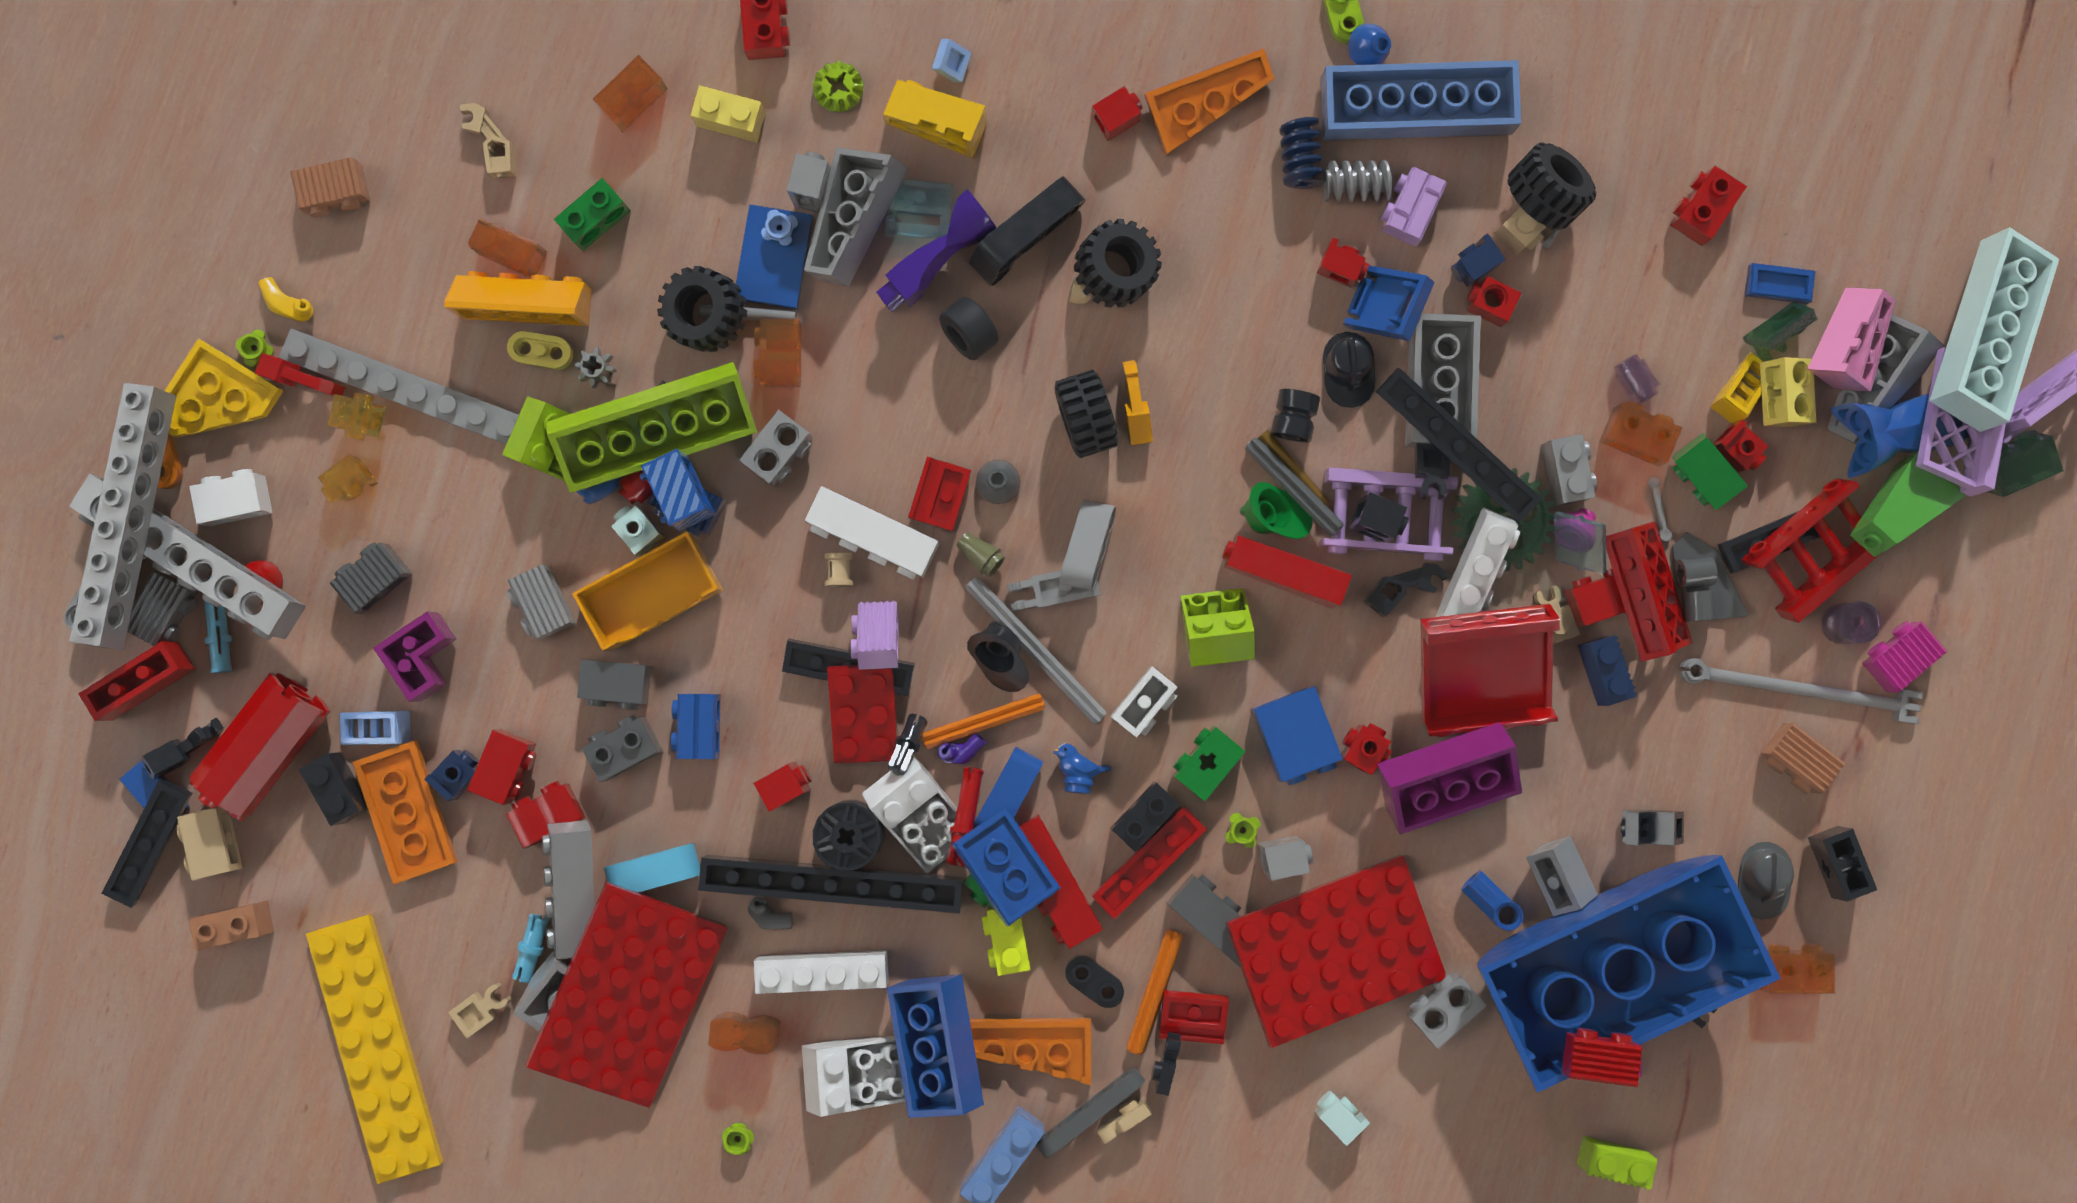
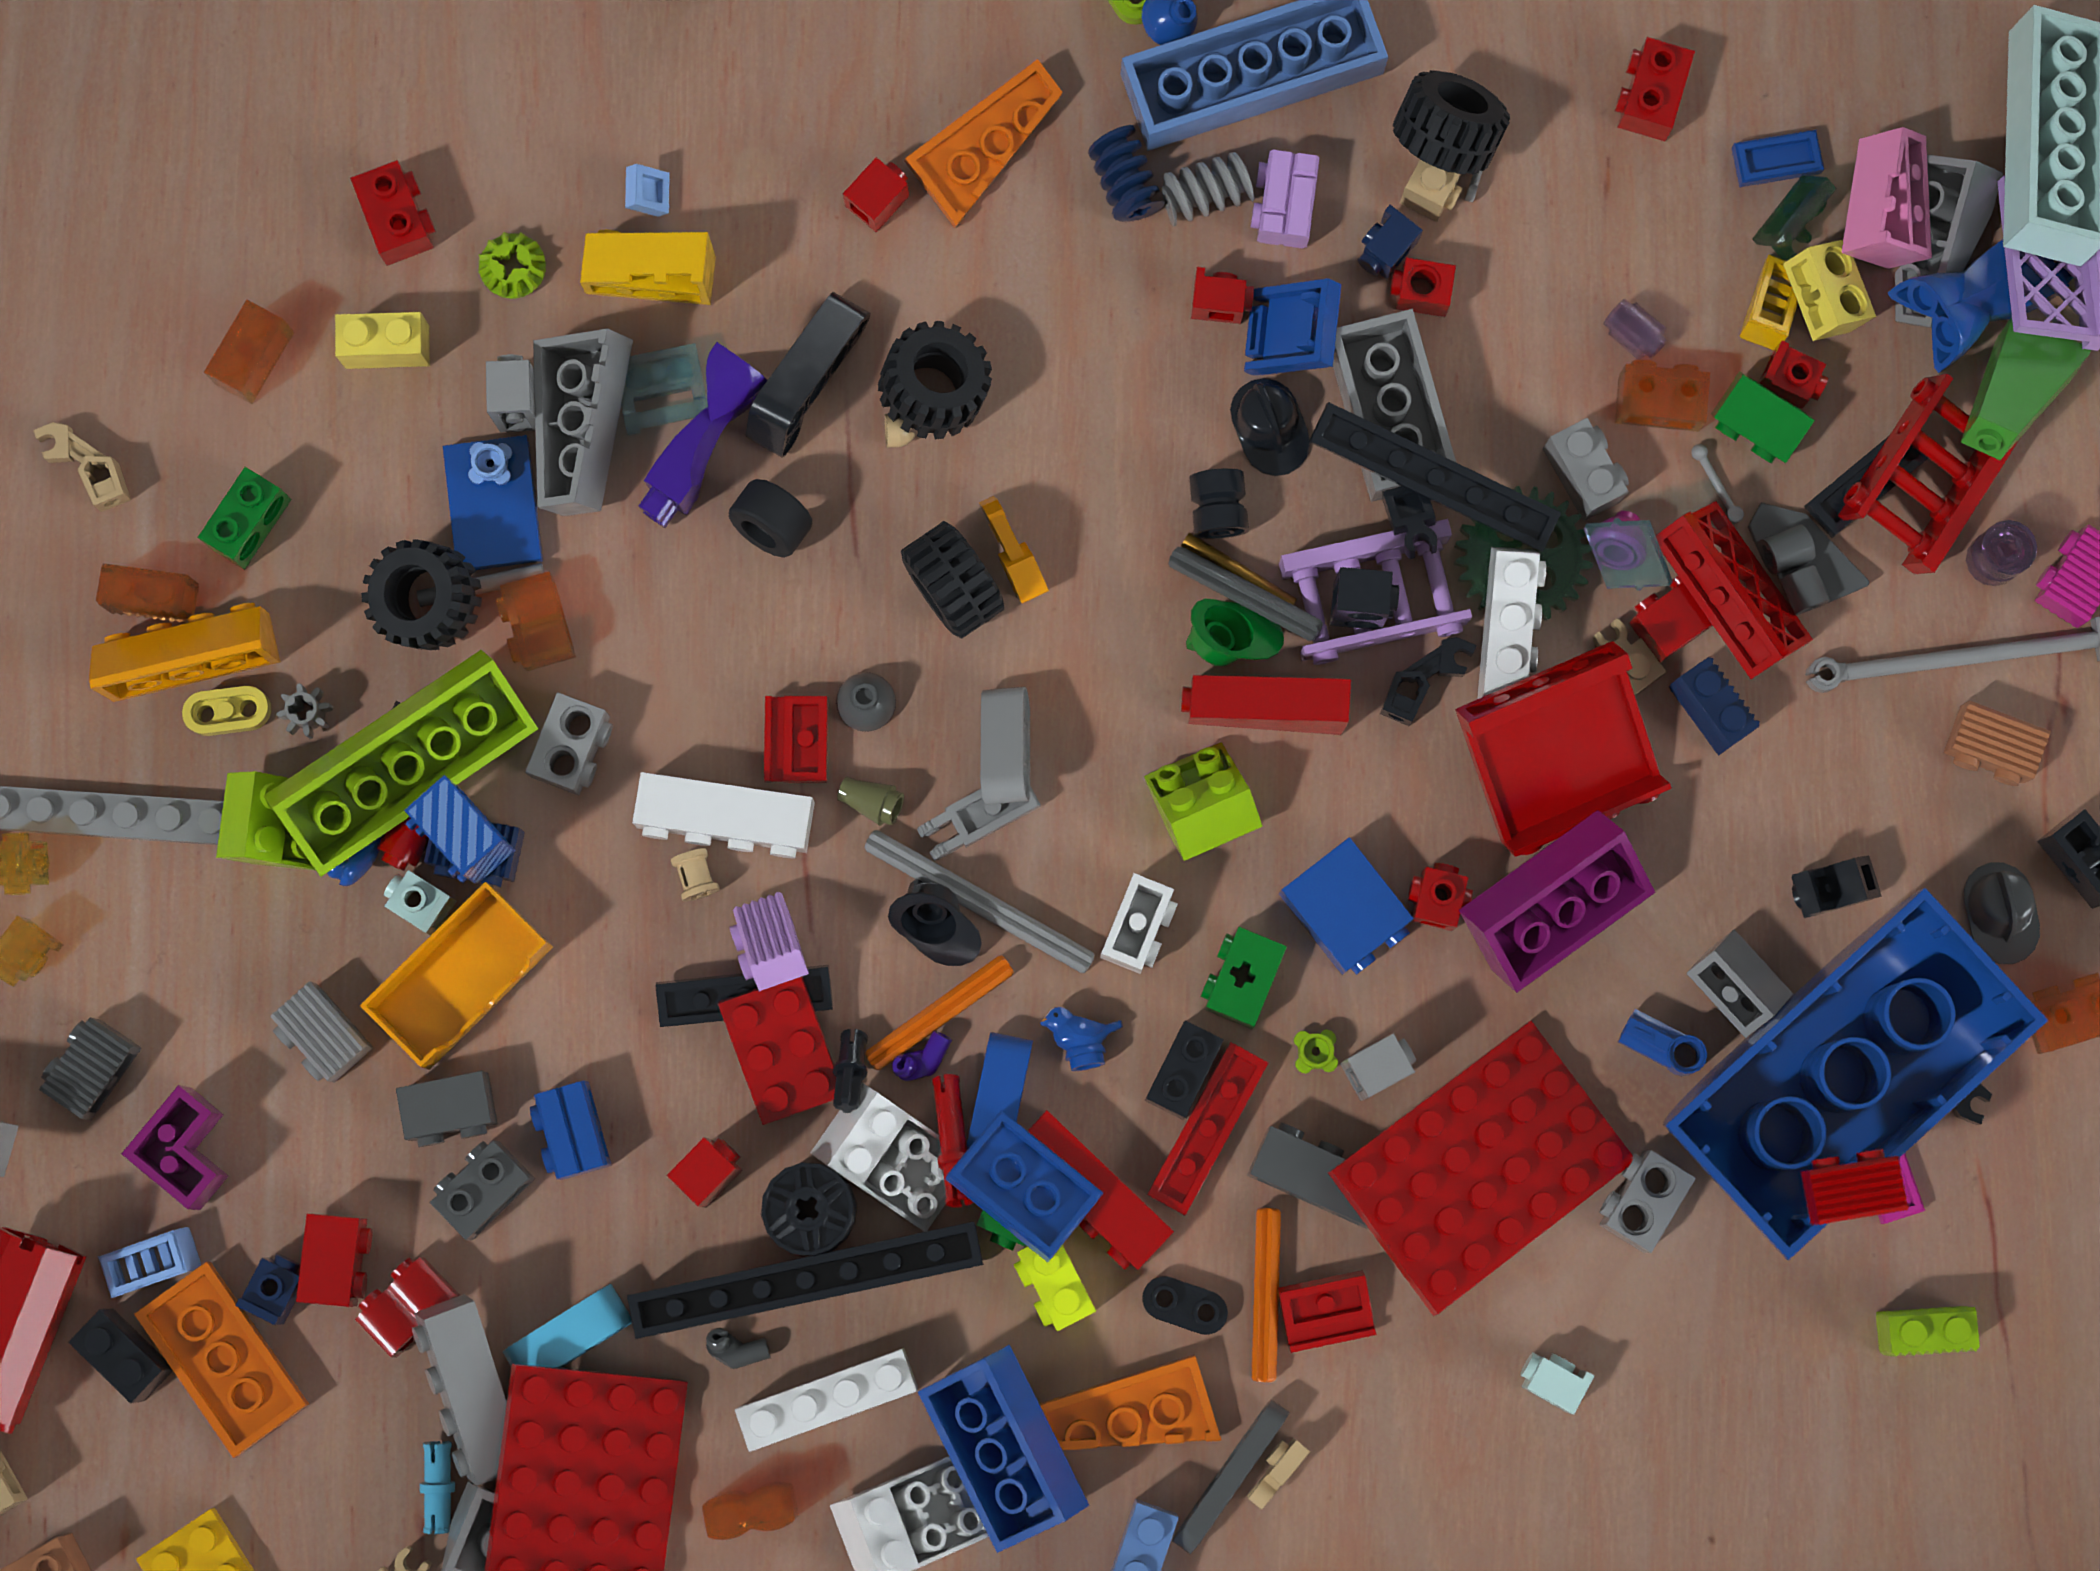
camera: 15 degrees left, 5 degrees down
(1164, 1070) = (1309, 1392): black plate -> none

